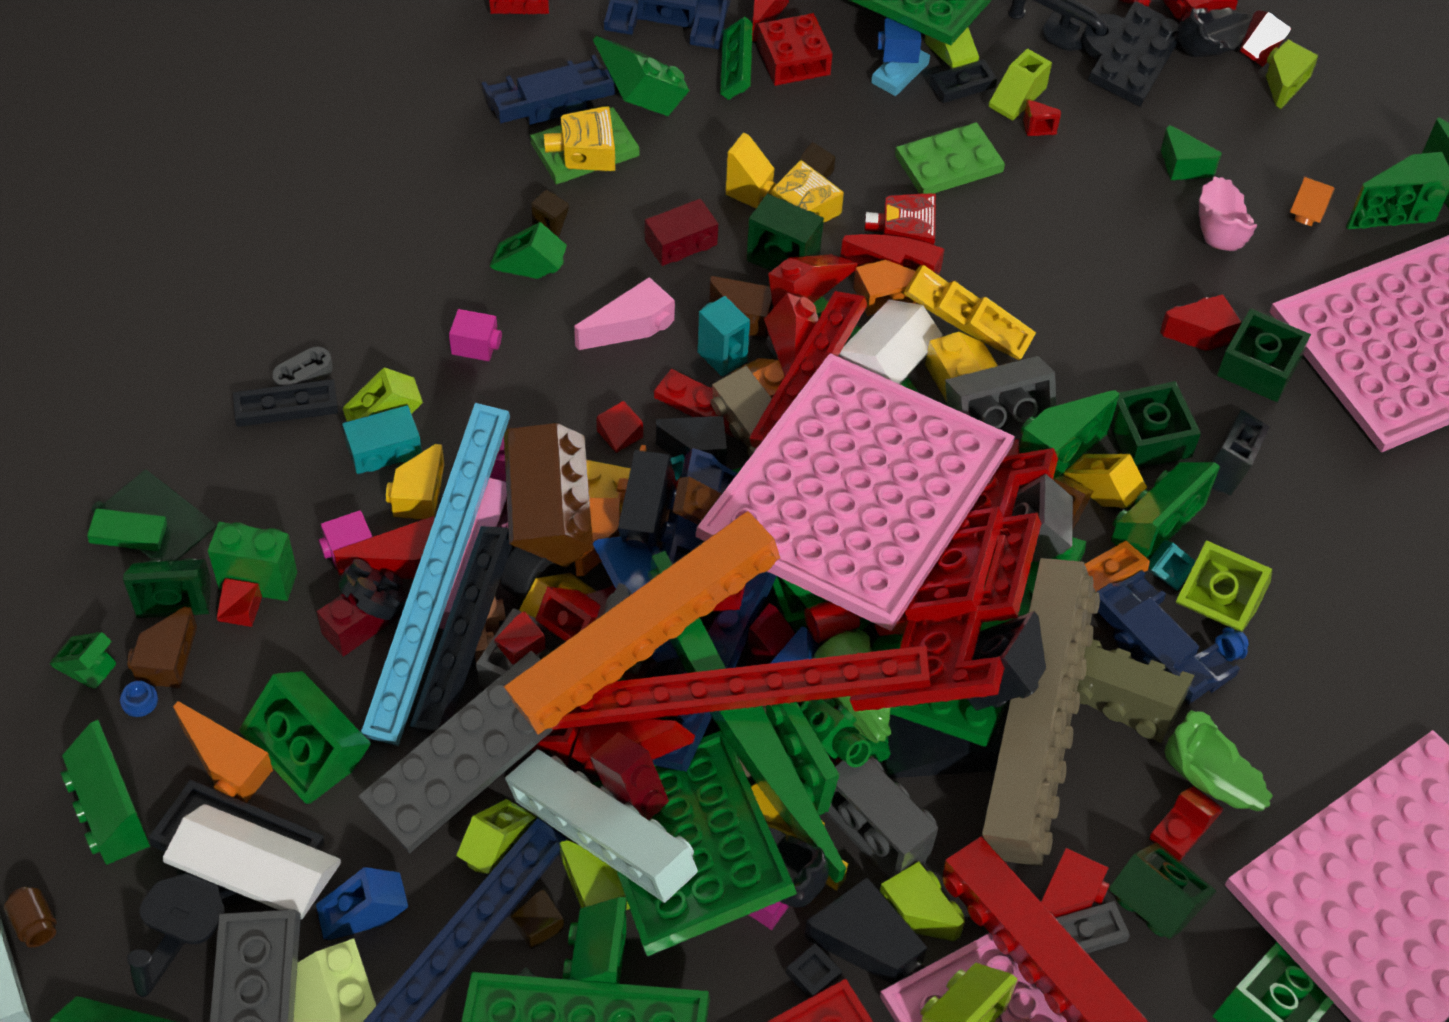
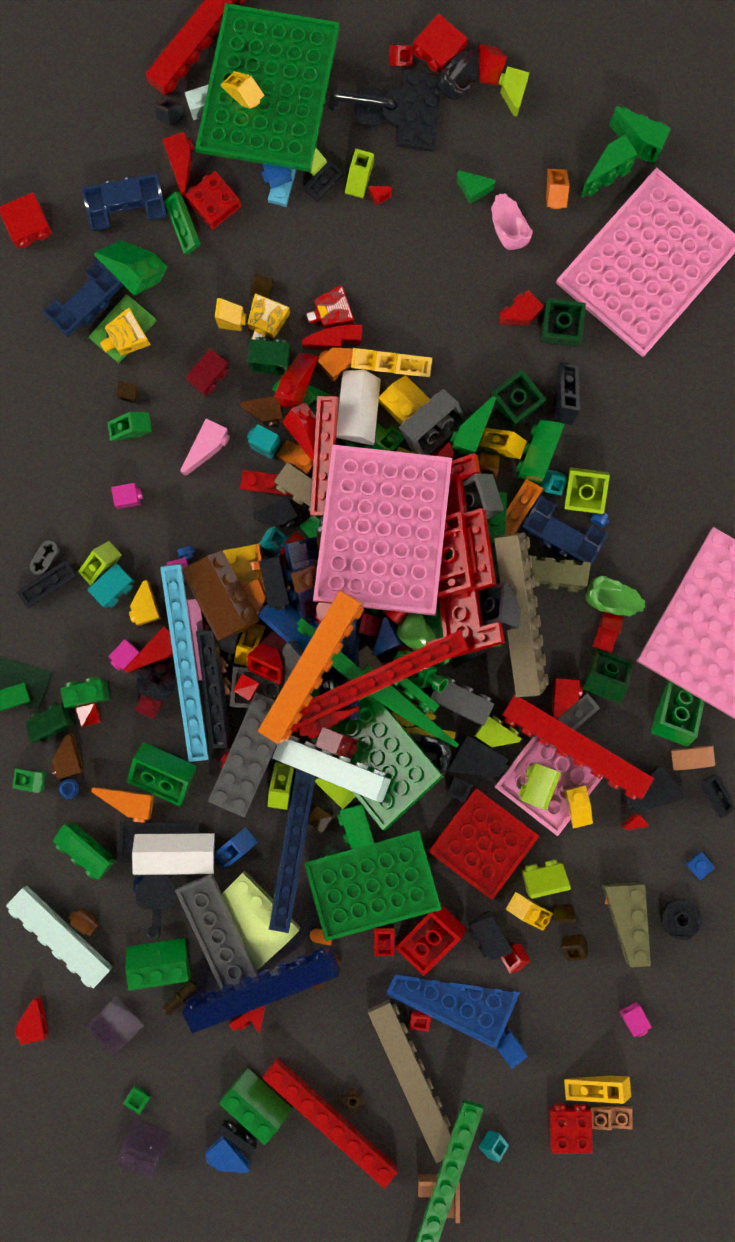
camera: 20 degrees left, 30 degrees up
(619, 426) = (232, 521): red slope -> none
(949, 159) = (337, 246): bright green plate -> none

